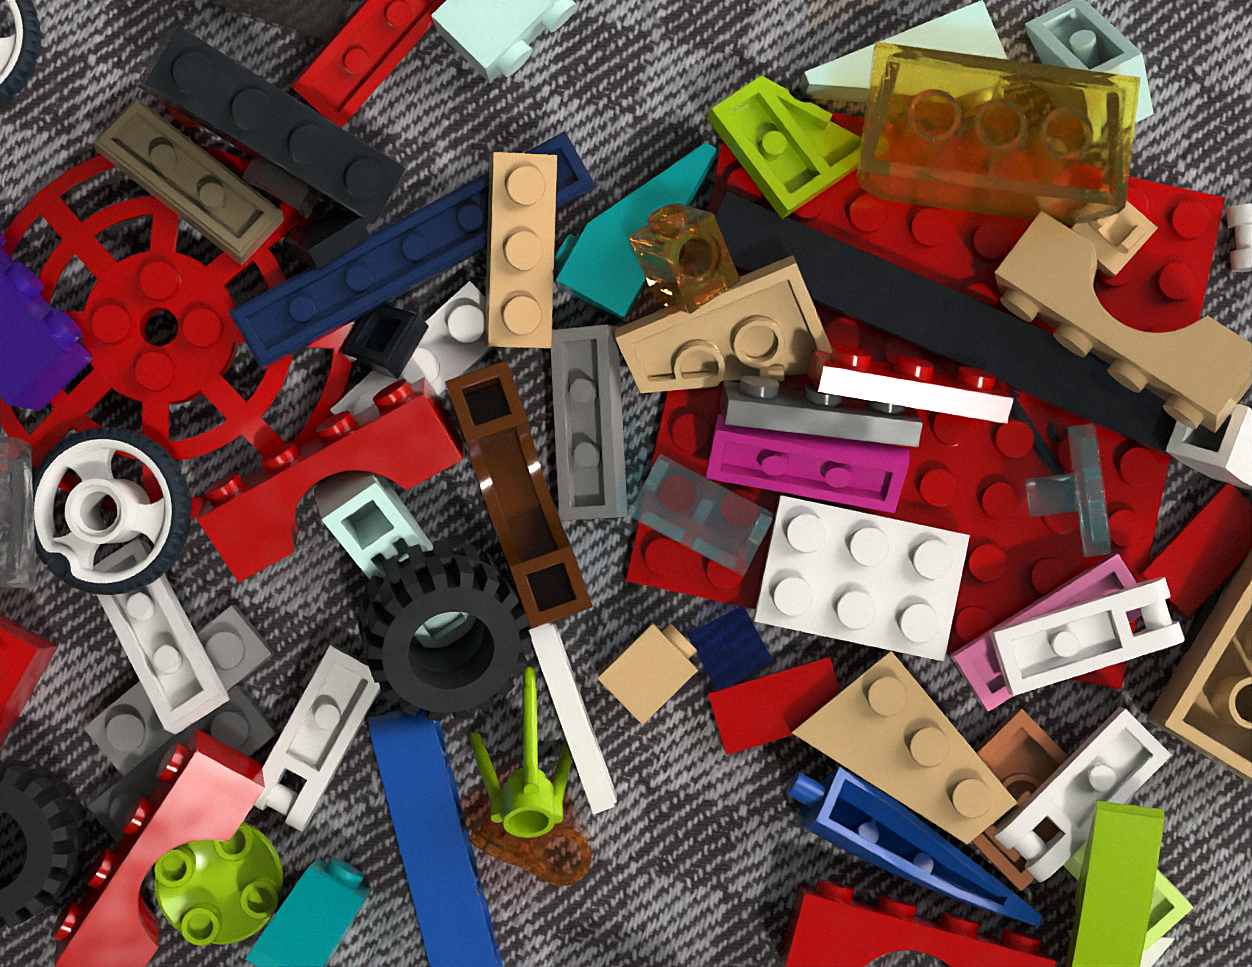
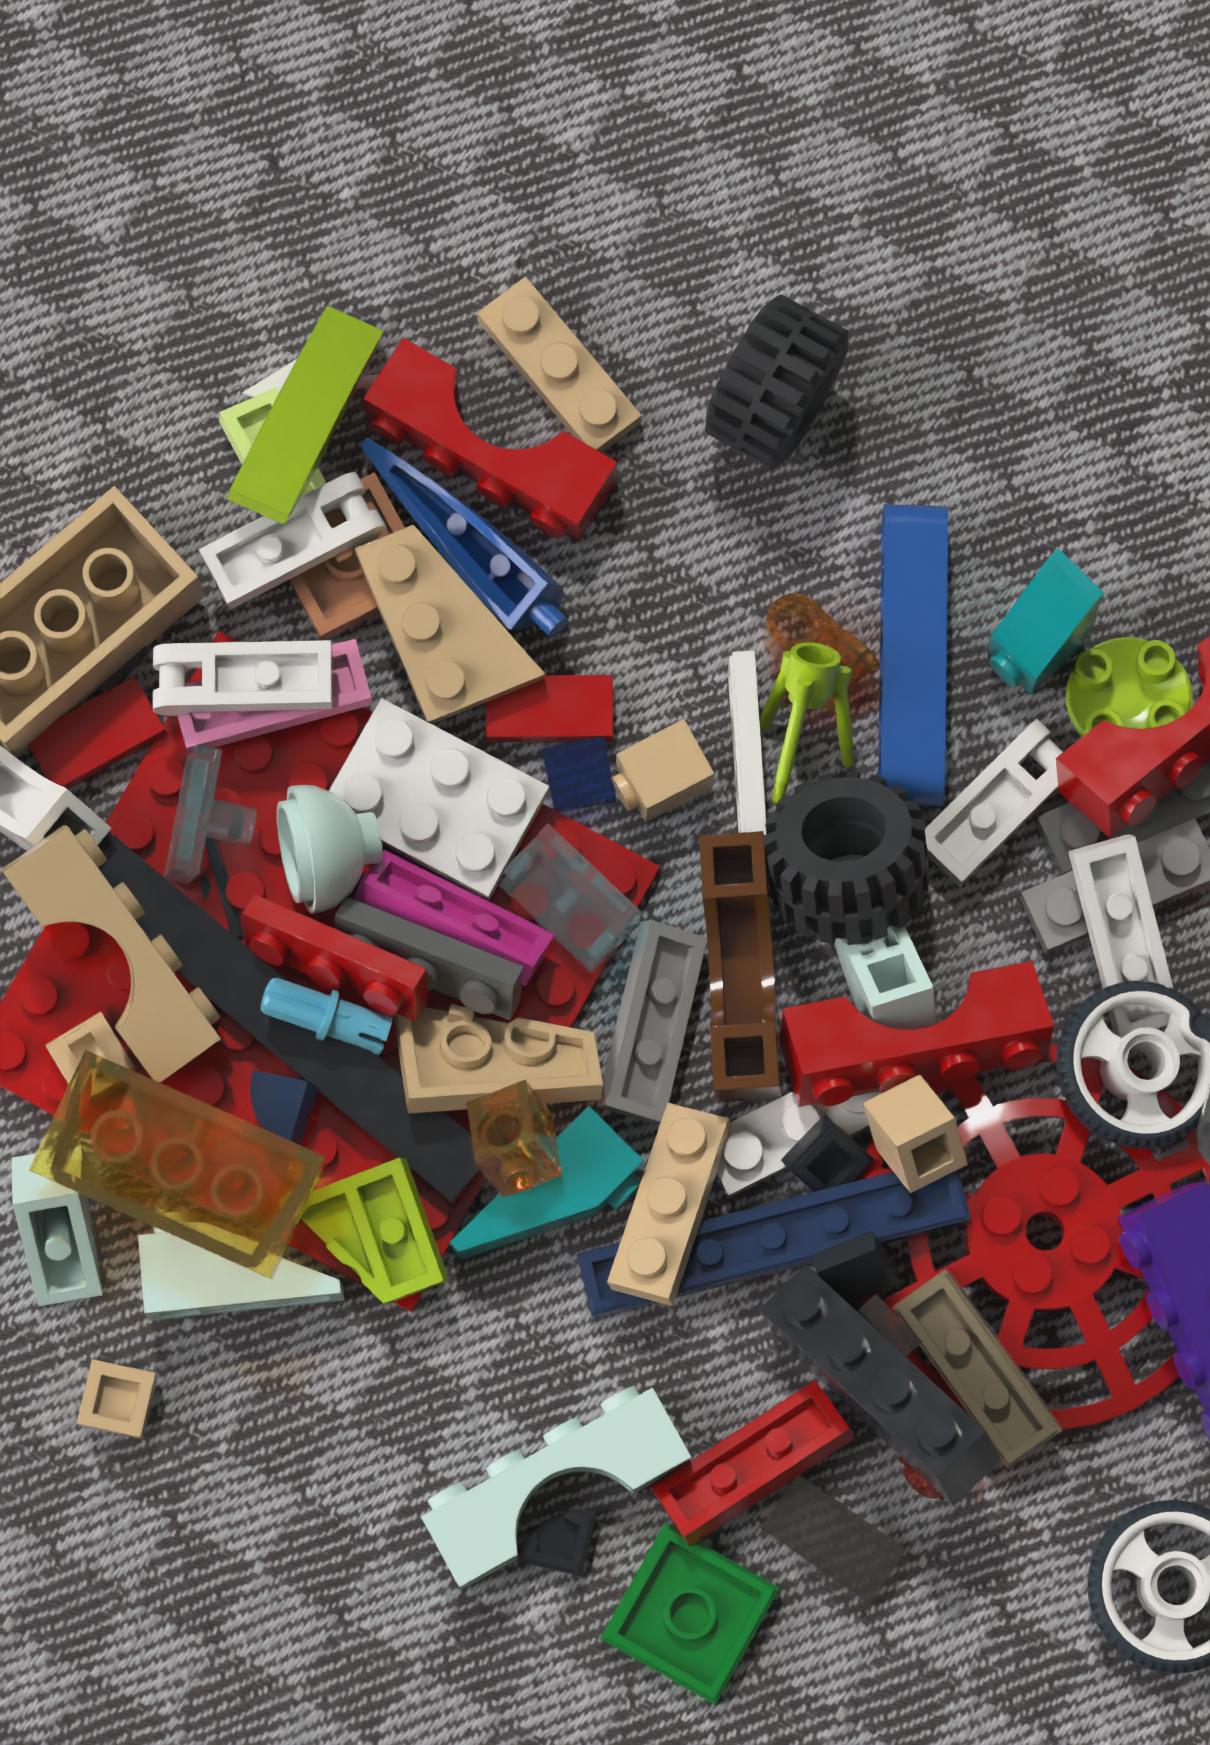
camera: 165 degrees left, 10 degrees down
(302, 375) = (915, 1133): none -> tan brick
(900, 327) = (326, 1015): none -> medium azure axle
(914, 234) = (282, 1104): none -> dark blue tile
(952, 491) = (324, 846): none -> light aqua piece

